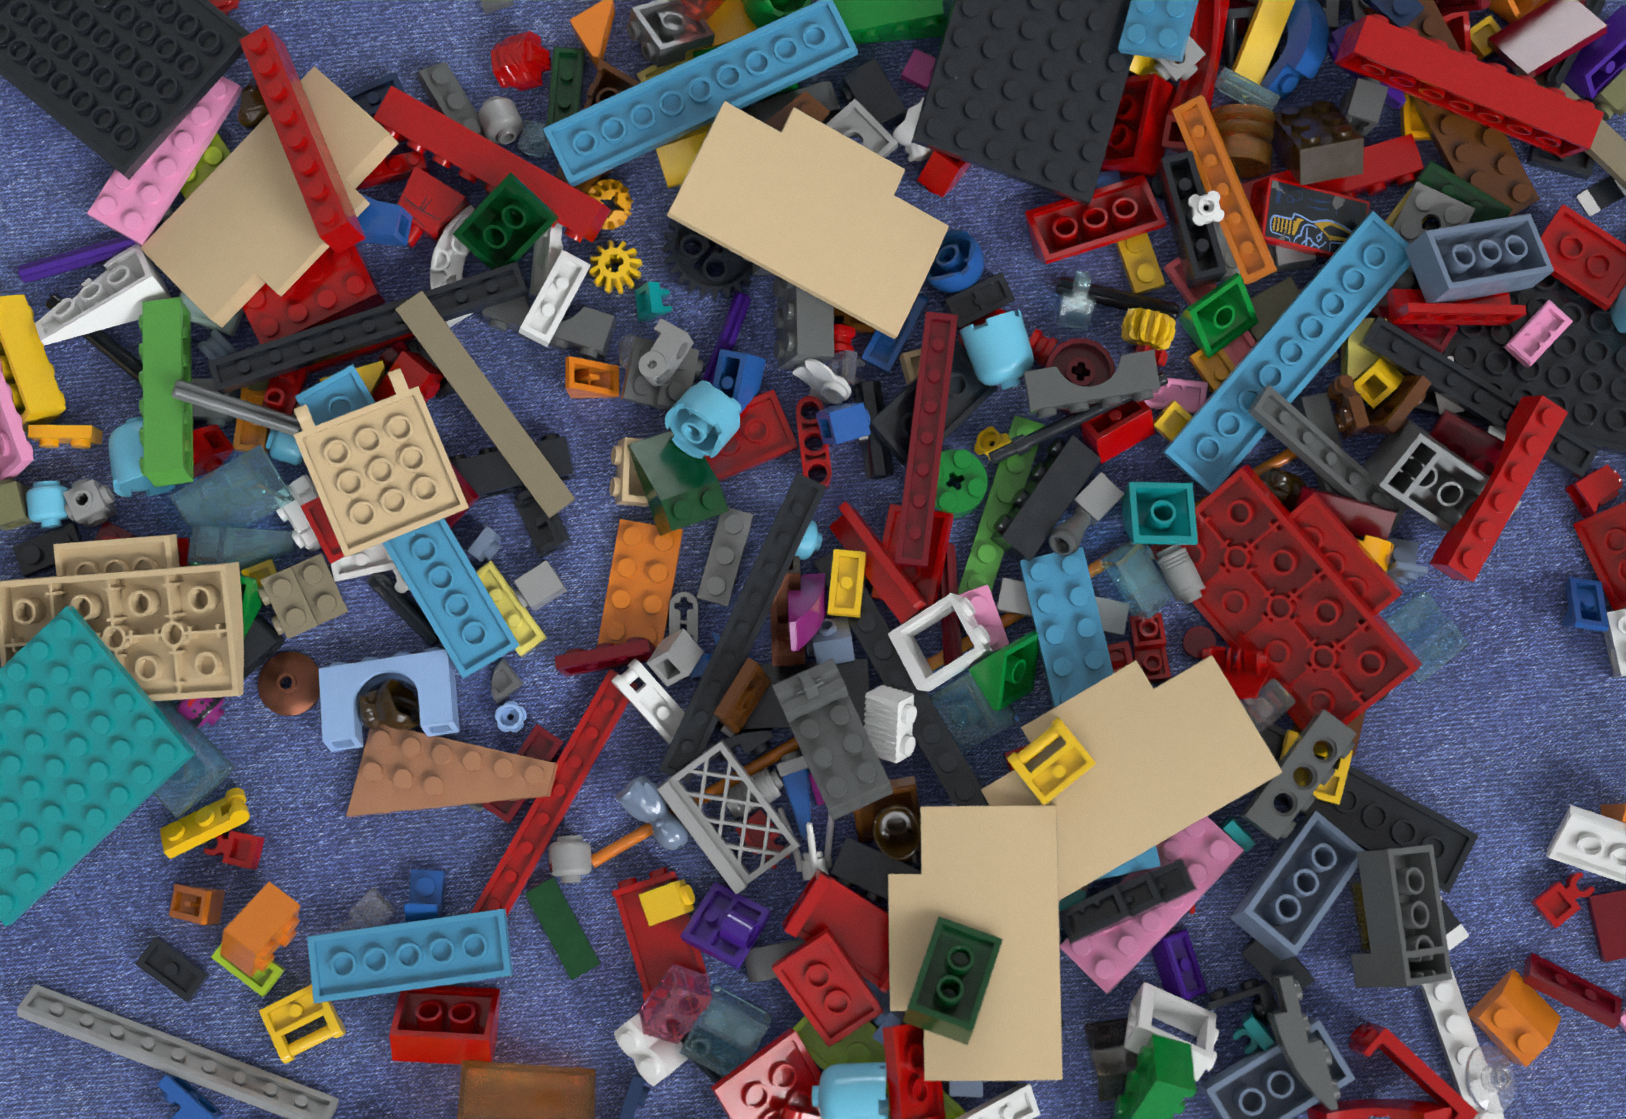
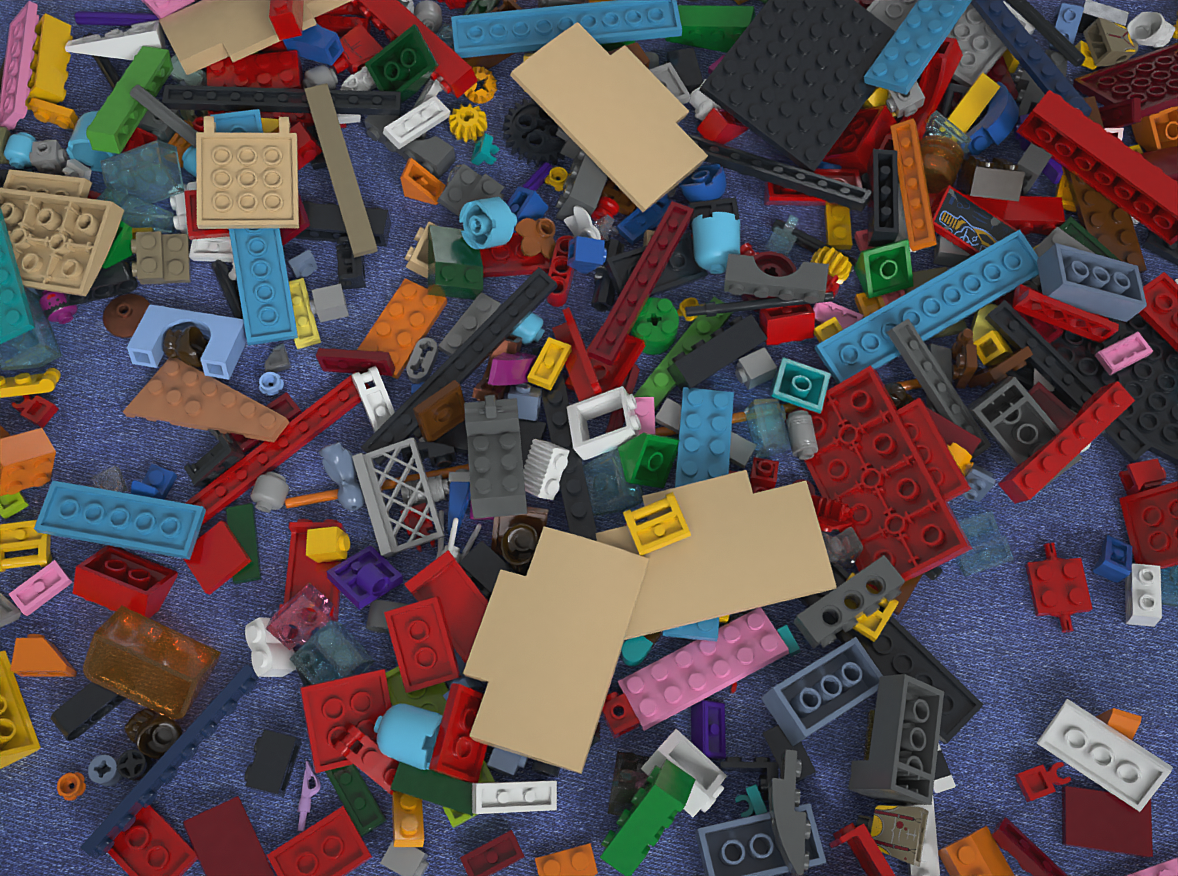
camera: 15 degrees right, 15 degrees down
(137, 515) = (77, 169): none -> white tile
(349, 1064) = (40, 588): none -> bright pink plate
(396, 269) = (320, 75): none -> light grey head
(487, 842) = (215, 462): none -> black hinge
(542, 958) = (217, 557): none -> red tile
(665, 354) = (478, 174): light grey leg -> none
(675, 657) = (404, 372): light grey brick -> none
(757, 301) = (557, 173): none -> yellow plate
(768, 416) = (535, 239): none -> dark orange plate
(953, 980) = (518, 660): dark green slope -> none
(1046, 222) = (784, 175): none -> black plate
(1069, 534) = (726, 380): dark grey cone -> none
(1087, 987) = (619, 724): none -> red brick
(1126, 901) = (678, 658): black slope -> none
(1201, 216) = (895, 191): white plate -> none
(1420, 1015) = (898, 831): none -> dark tan torso
(1527, 661) = (1058, 587): none -> red plate

